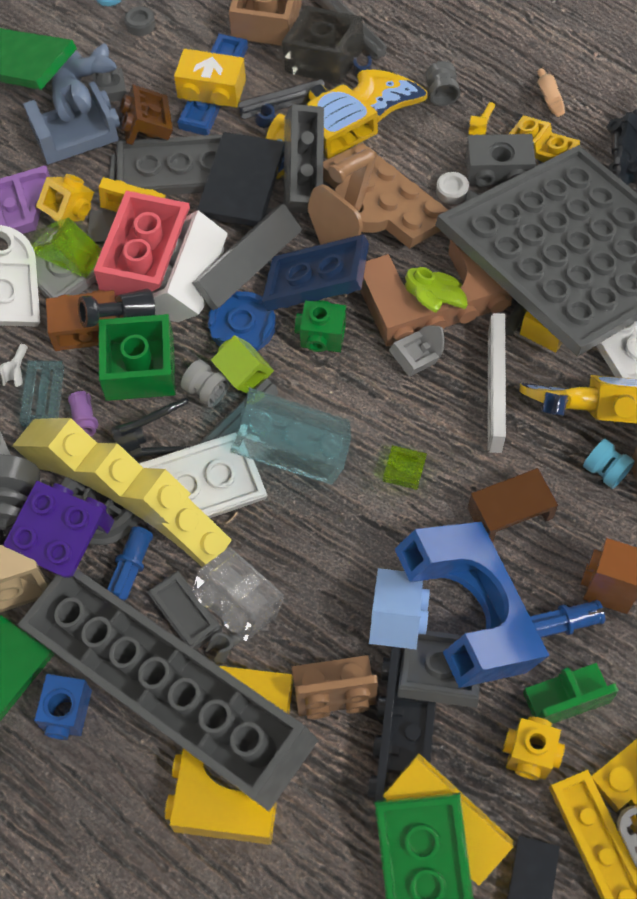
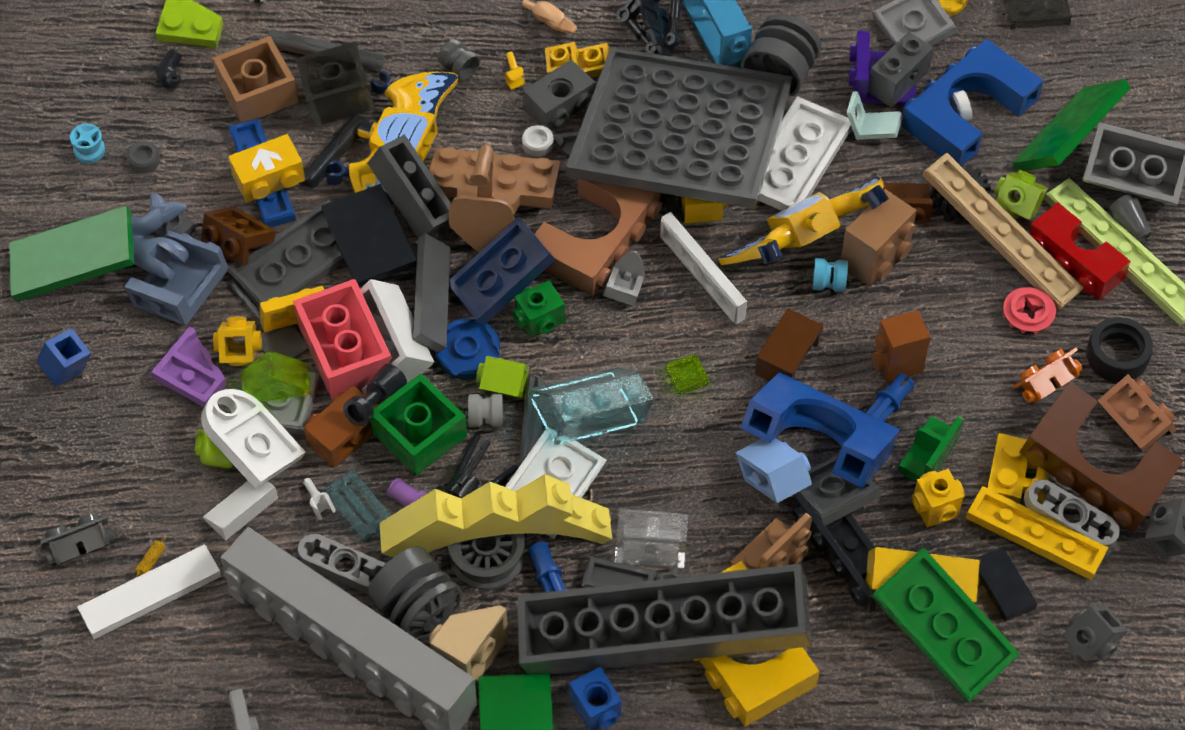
camera: 40 degrees left, 5 degrees down
(57, 528) = (489, 575): dark purple bracket -> none
(434, 288) = (604, 225): lime plate -> none

